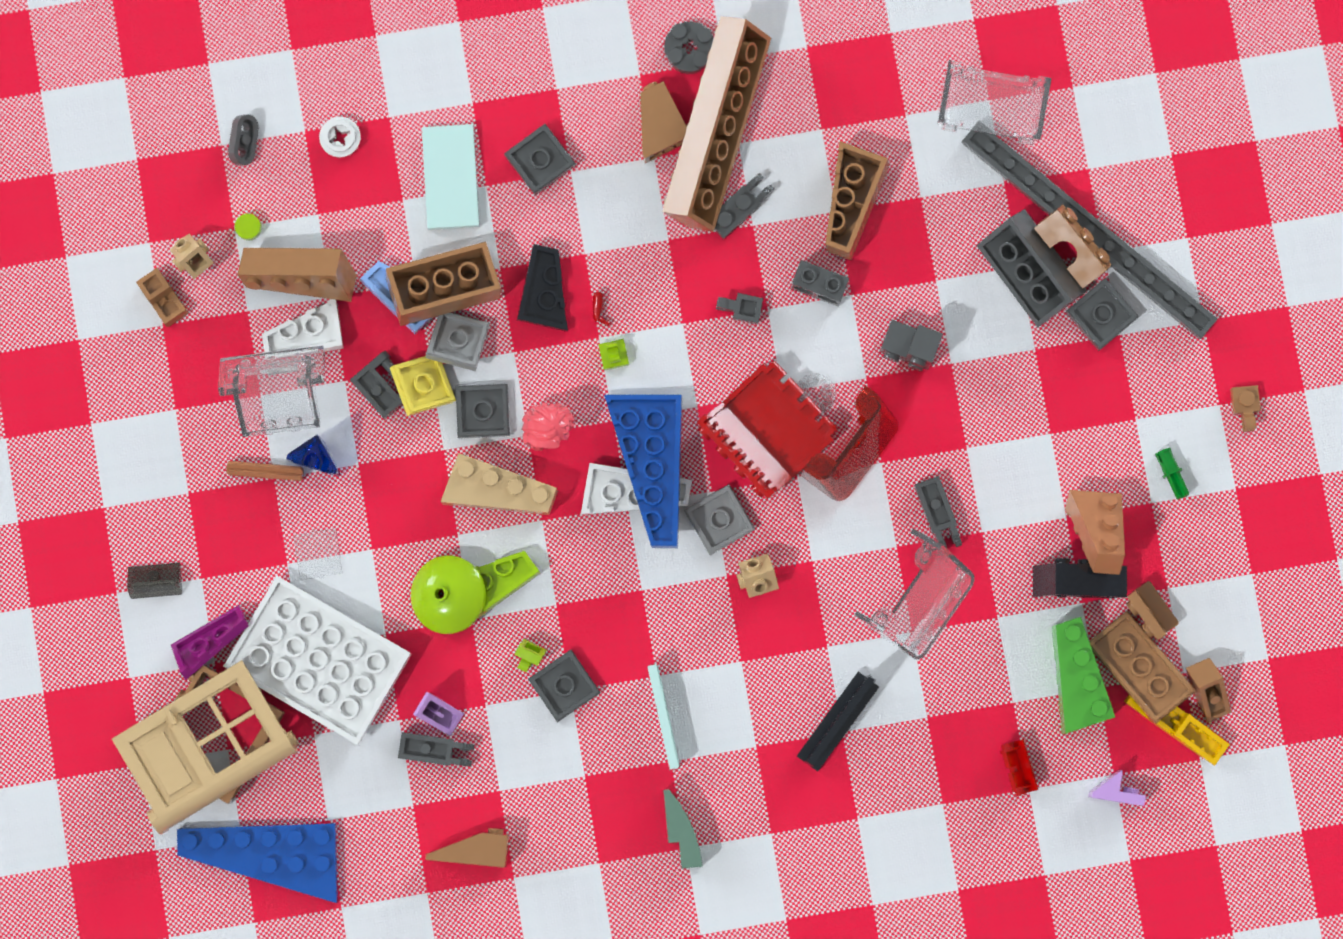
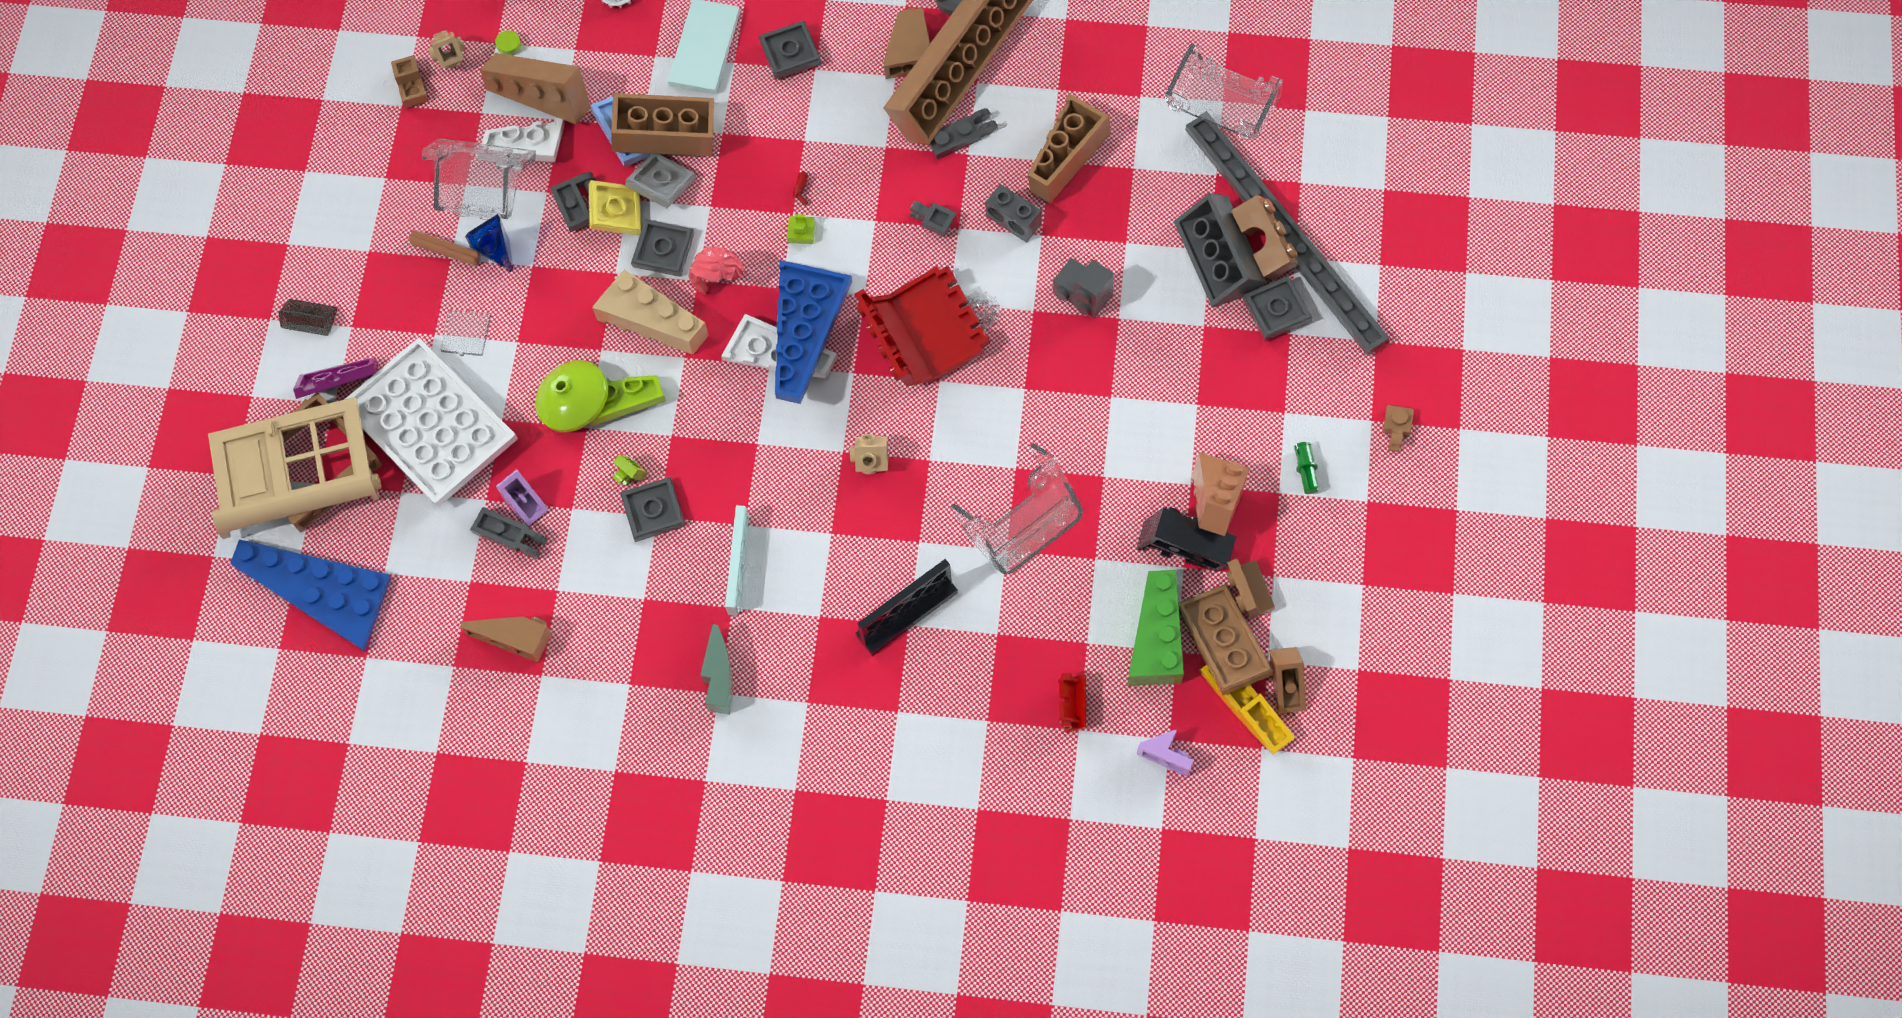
camera: 20 degrees right, 15 degrees down
(542, 291) = (754, 158): black wing -> none
(719, 519) = (852, 398): light grey tile -> none
(840, 477) = (1002, 365): clear red windscreen -> none
(937, 510) = (1065, 439): dark grey hinge -> none

